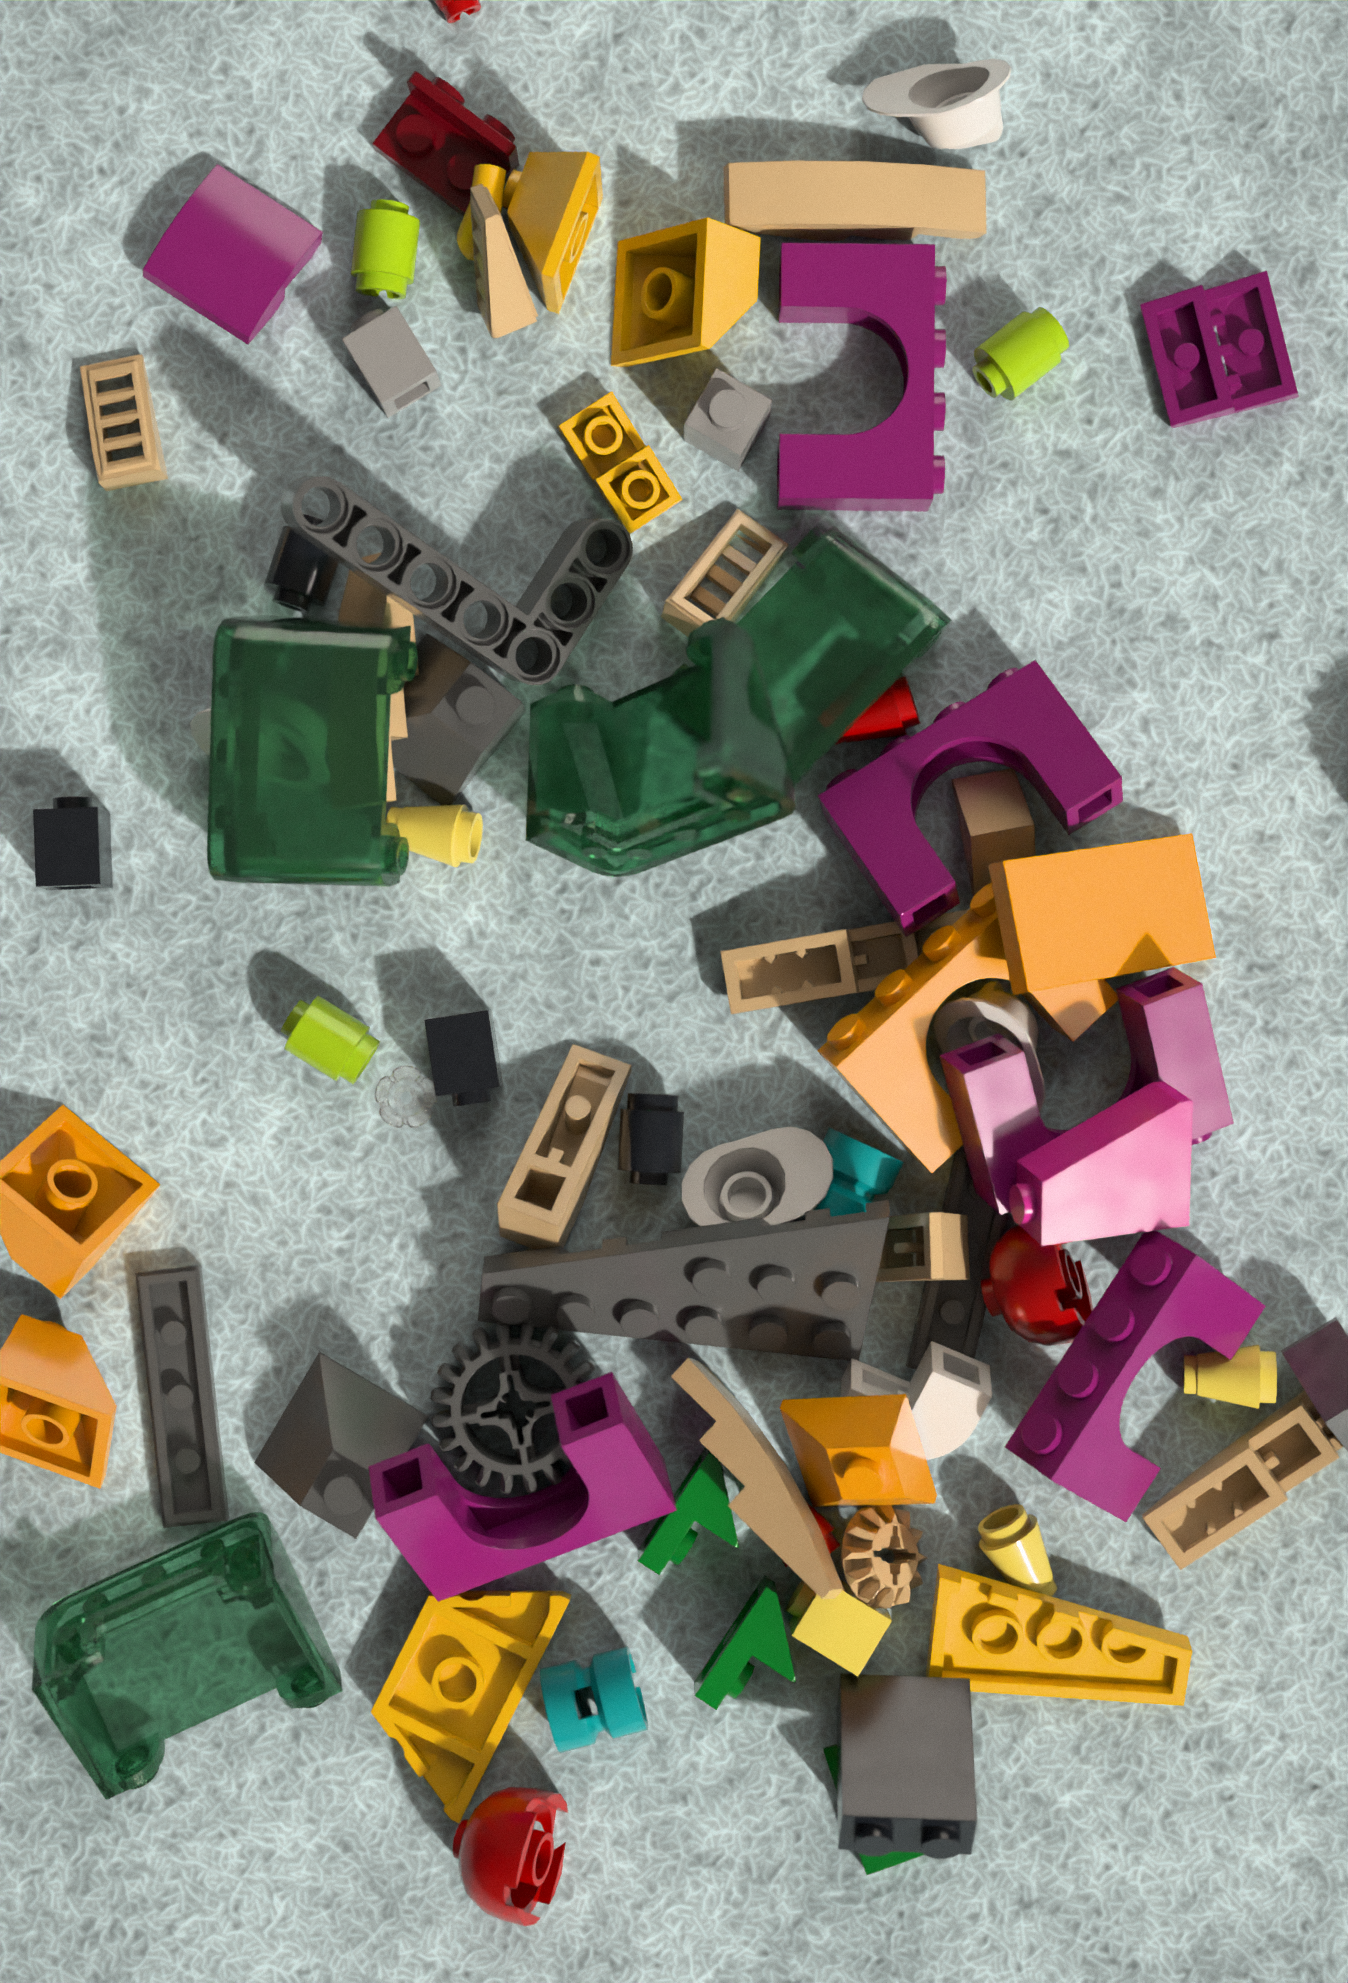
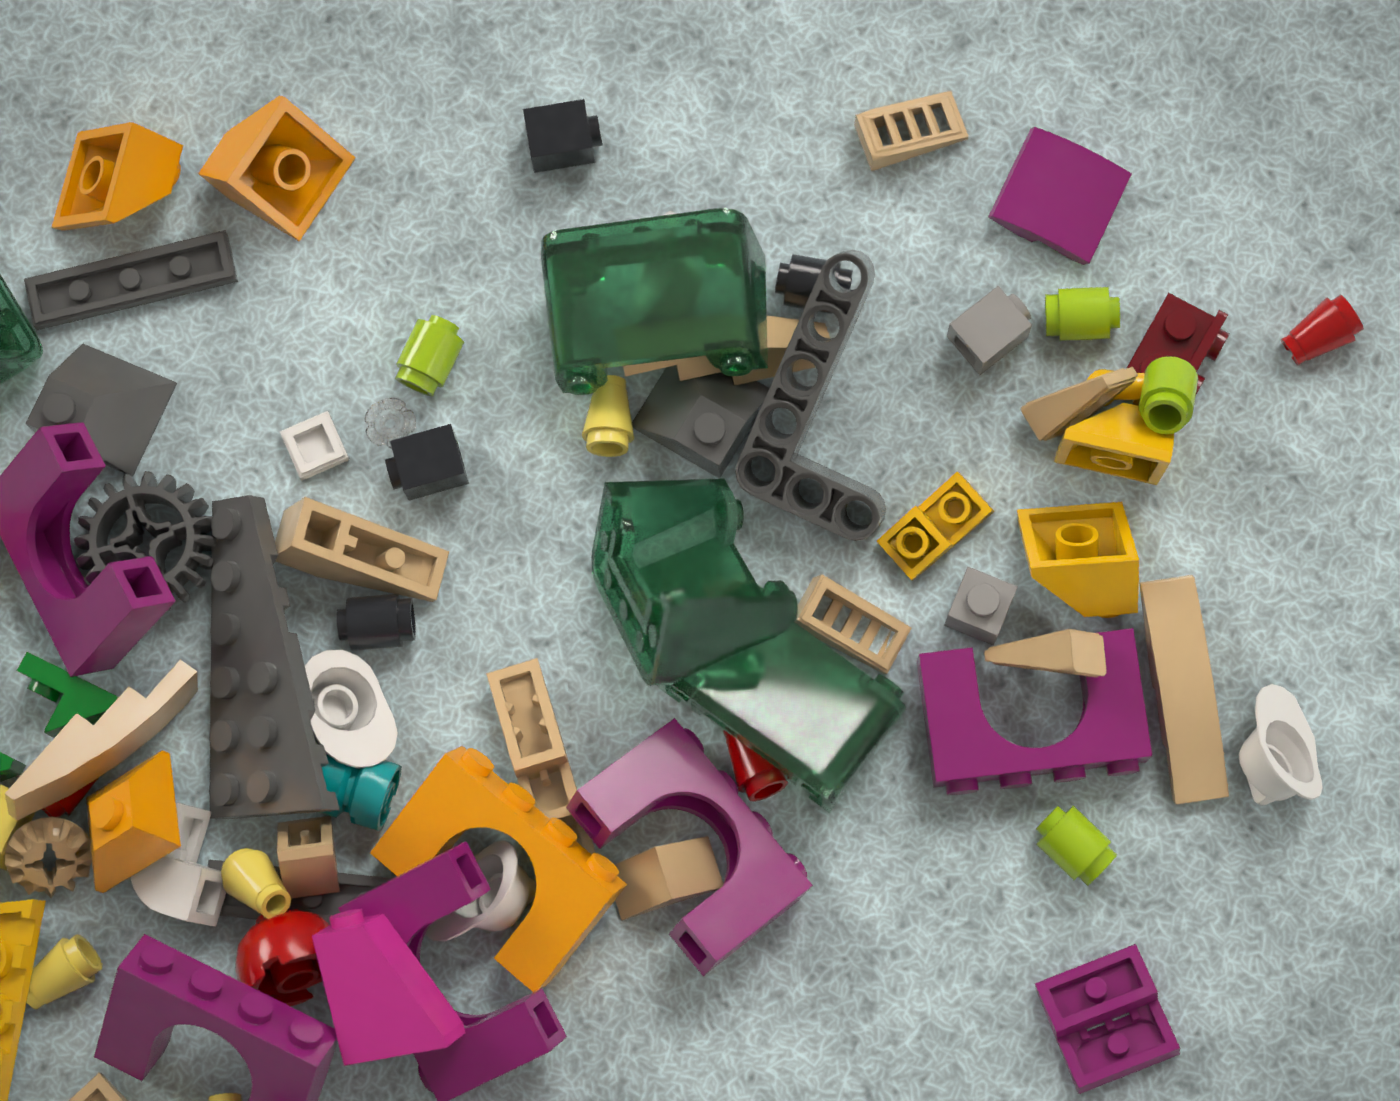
camera: 90 degrees right, 10 degrees down
(421, 1191) = (314, 445): none -> white tile
(512, 149) = (1168, 394): none -> lime brick
(809, 320) = (1058, 652): none -> tan slope
(952, 1311) = (254, 881): none -> light yellow cone
(1101, 912) = (602, 965): light orange tile -> none

